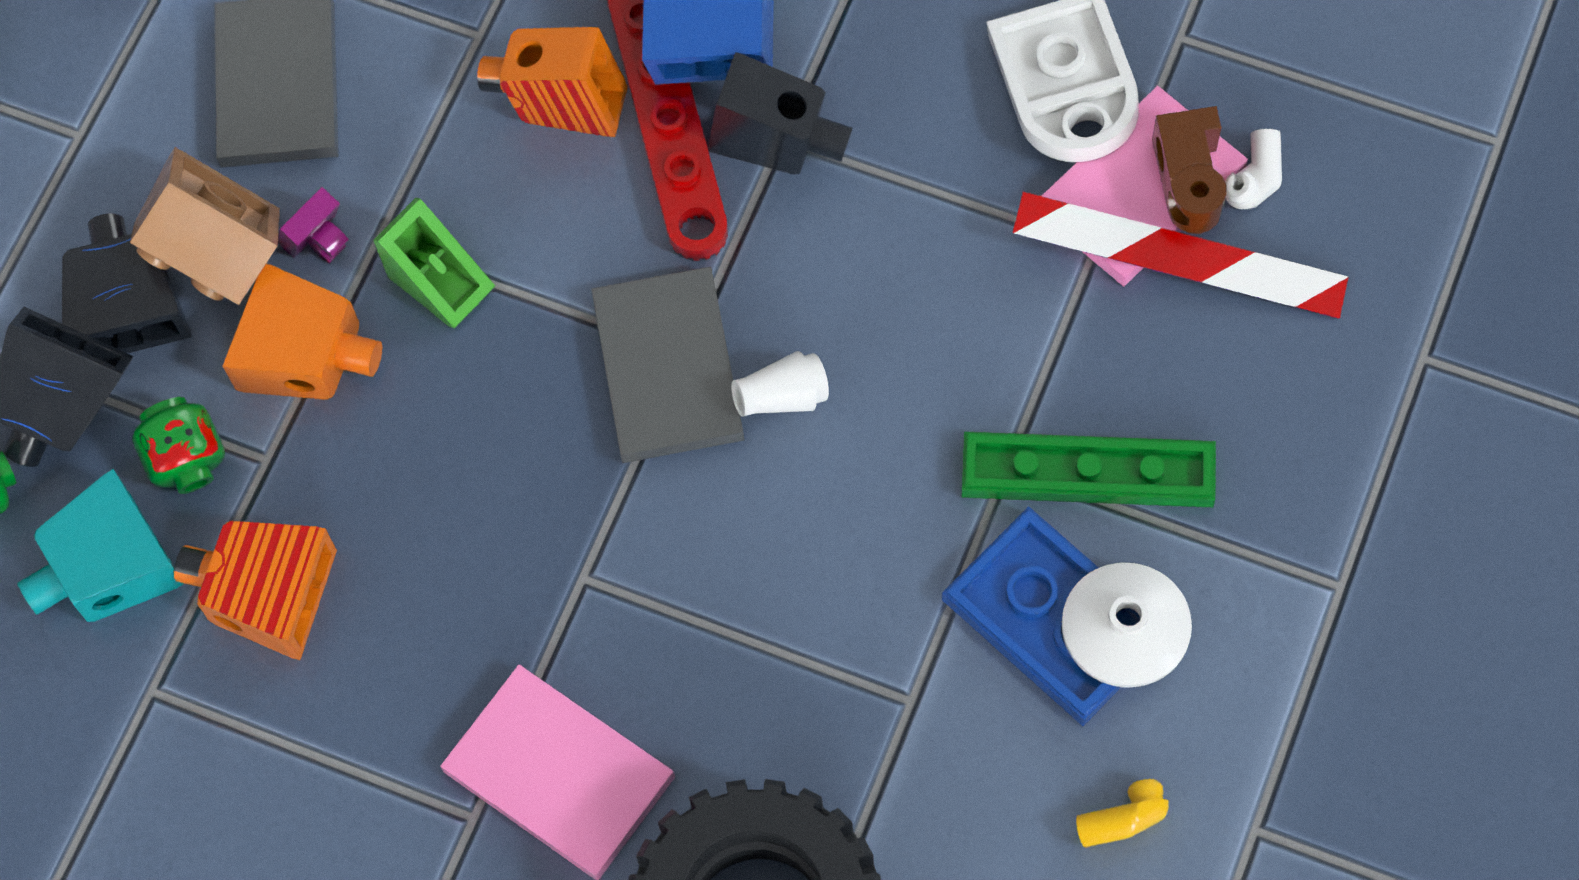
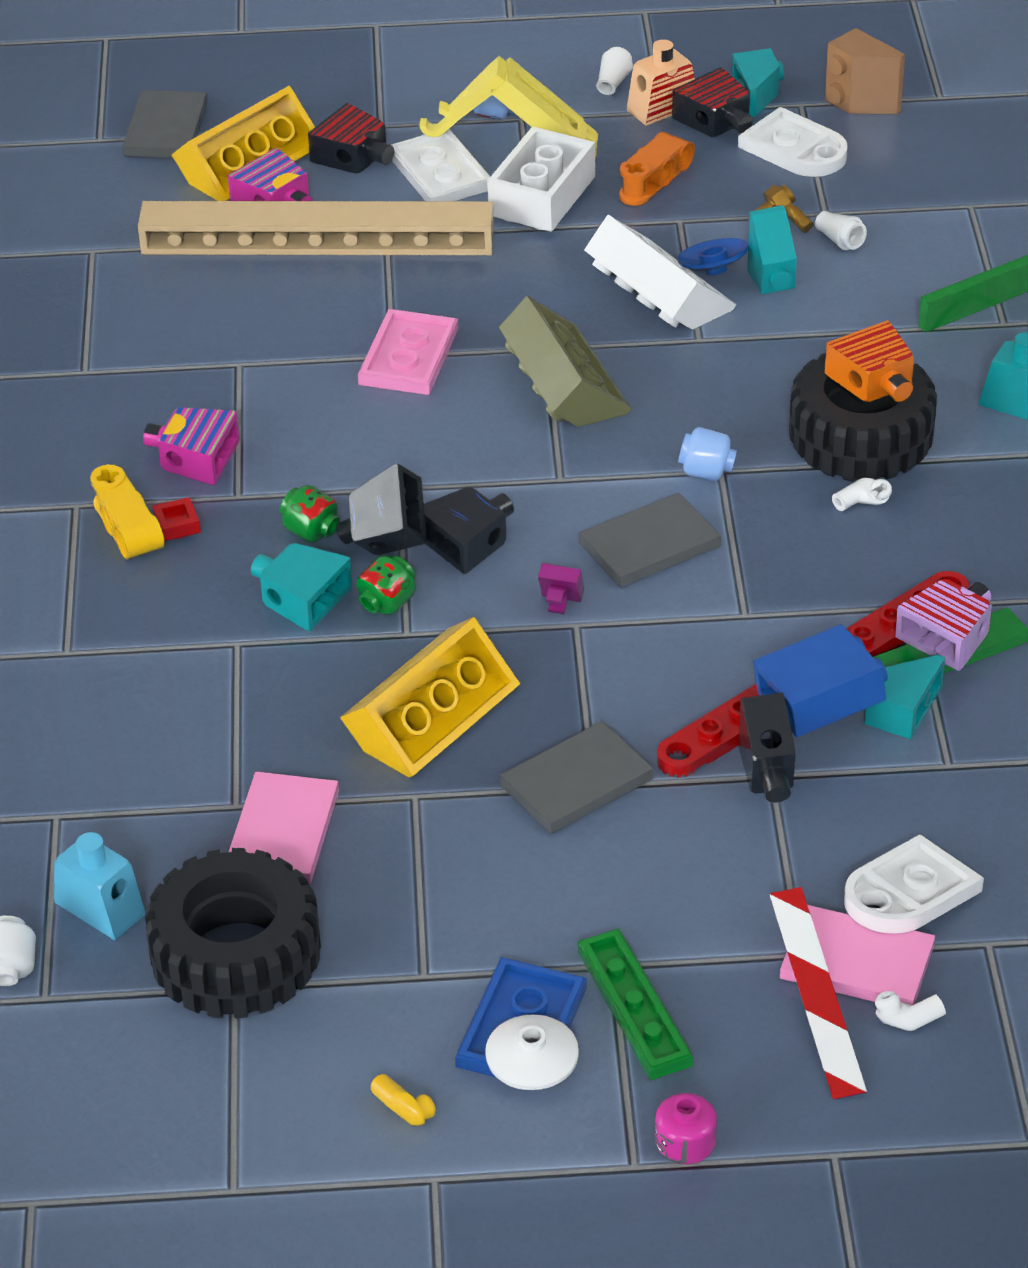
camera: 60 degrees right, 25 degrees down
(206, 228) = (522, 530): slope -> none
(261, 581) = (325, 654): orange torso -> none
(297, 340) = (488, 597): orange torso -> none
(431, 264) = (569, 640): bright green slope -> none
(432, 481) = (431, 699): none -> yellow slope
(559, 79) = (727, 634): orange torso -> none
(784, 386) = (592, 828): white cone -> none
(1189, 182) = (875, 960): reddish brown leg -> none
(1343, 501) = (685, 1128): none -> dark pink head

